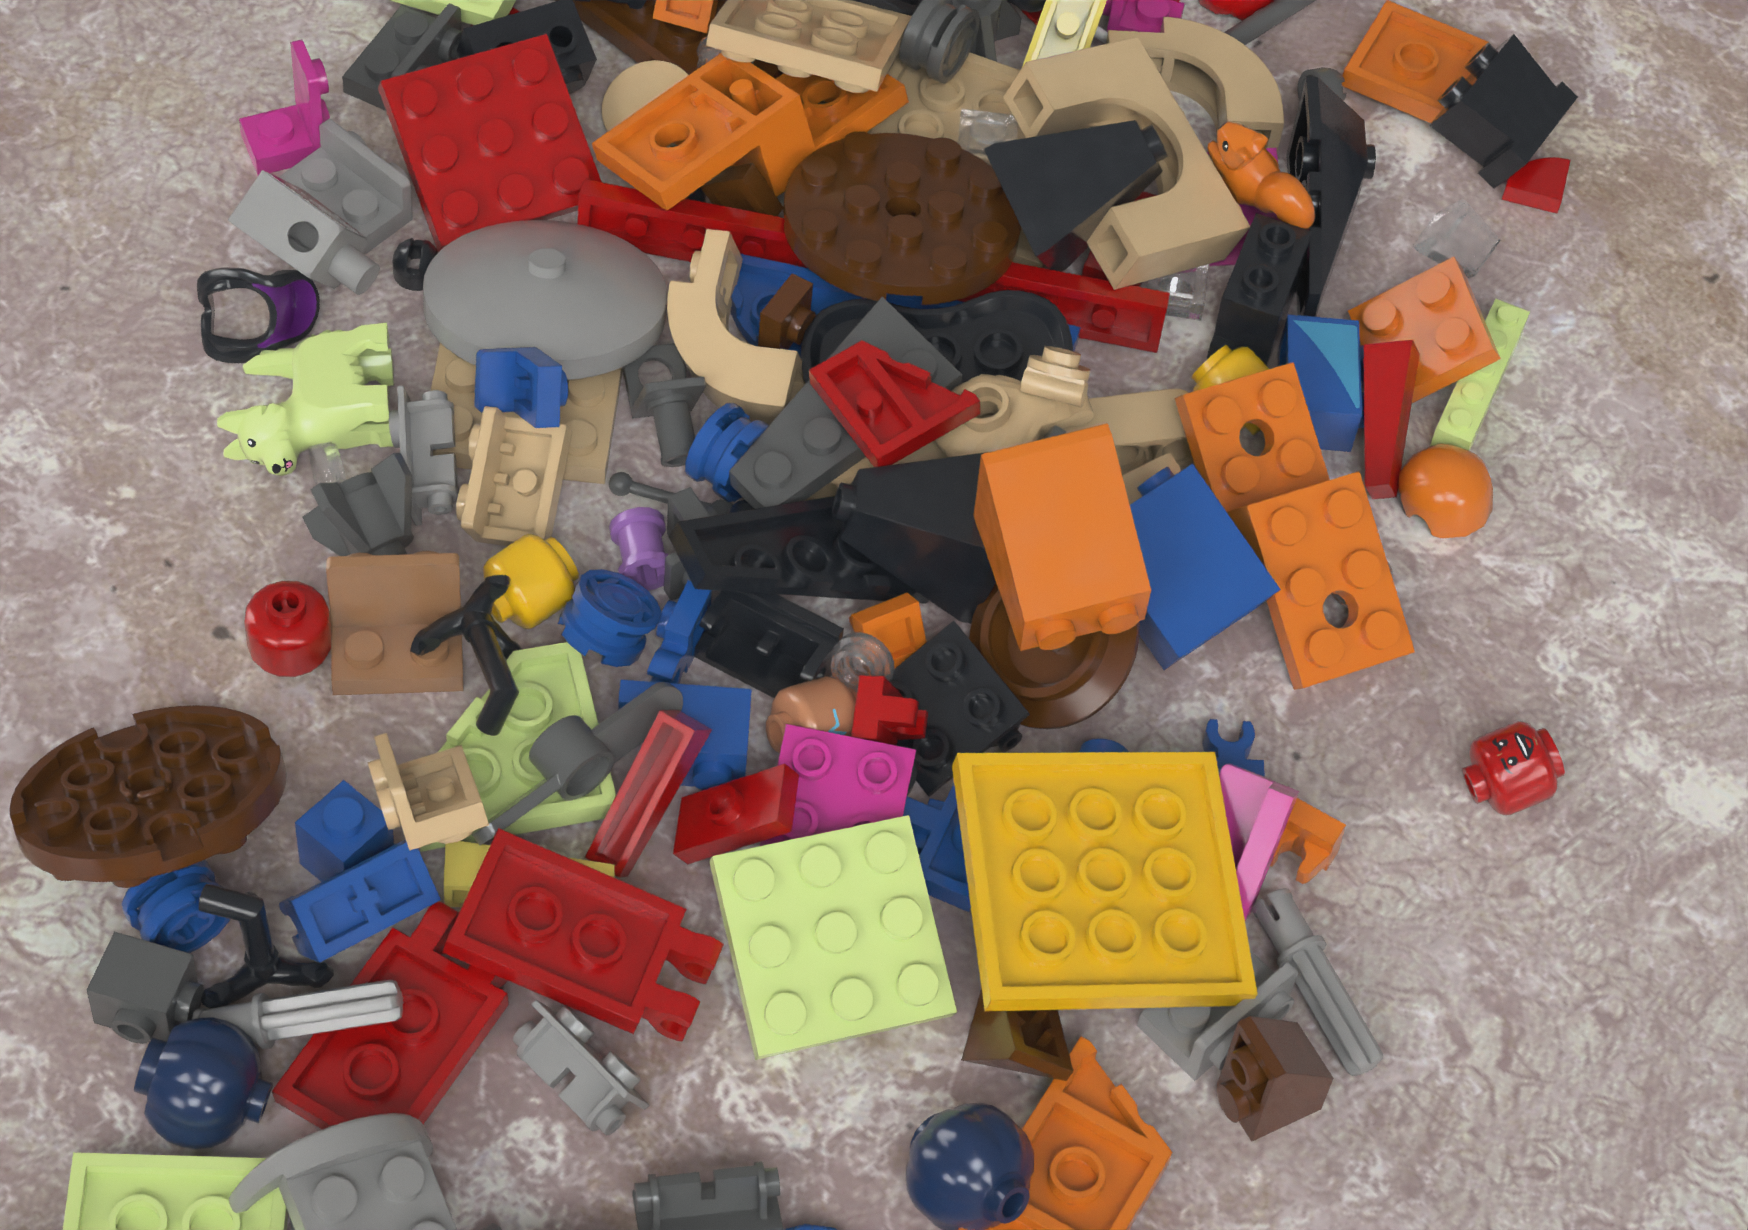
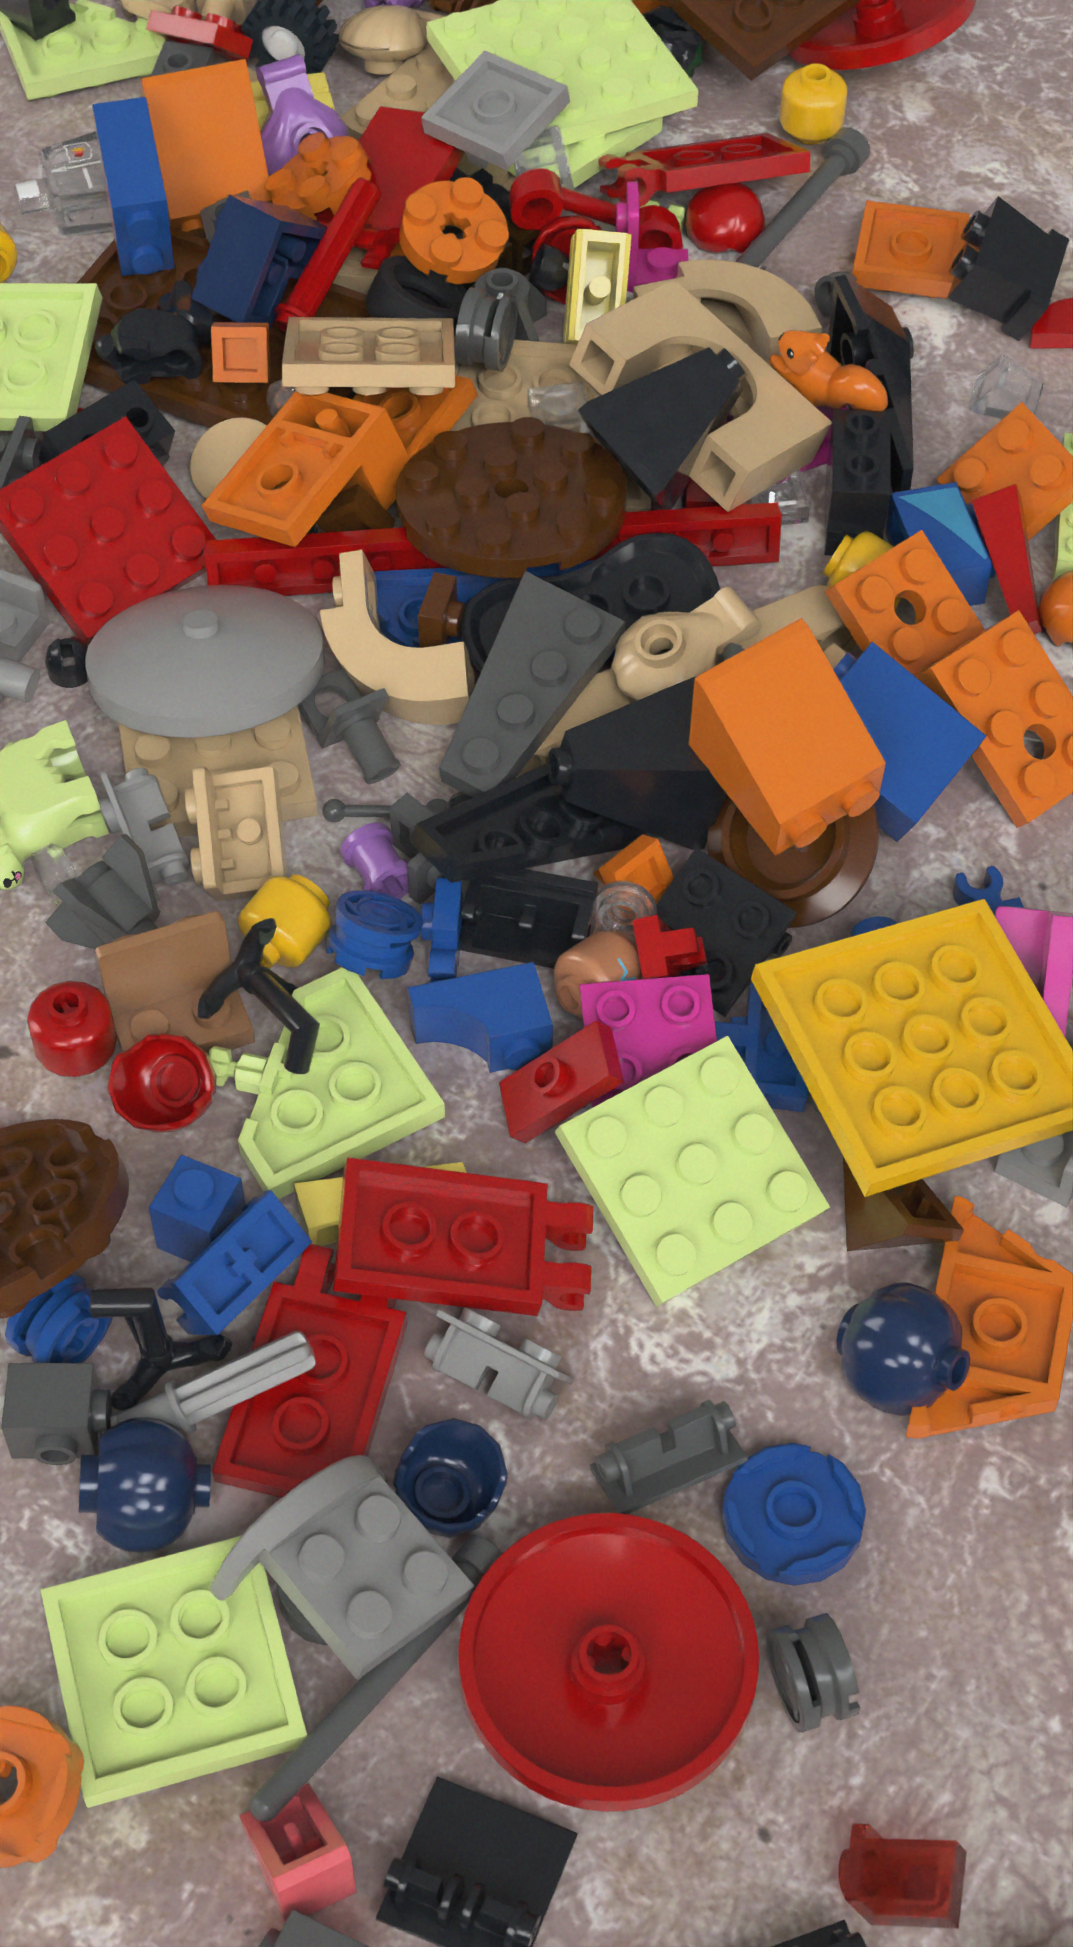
camera: 10 degrees left, 0 degrees up
(352, 704) = (162, 1083): none -> red hair
(421, 706) = (246, 1071): none -> yellowish green piece
(427, 796) = (269, 1145): tan bracket -> none
(490, 1162) = (451, 1476): none -> dark blue hair
(522, 383) = (218, 738): blue bracket -> none
(580, 758) = (396, 1070): dark grey piece -> none
(648, 790) = (470, 1083): red piece -> none
(720, 447) = (422, 750): blue wheel -> none
(888, 403) = (570, 663): red wing -> none
(1056, 376) = (718, 597): tan plate -> none

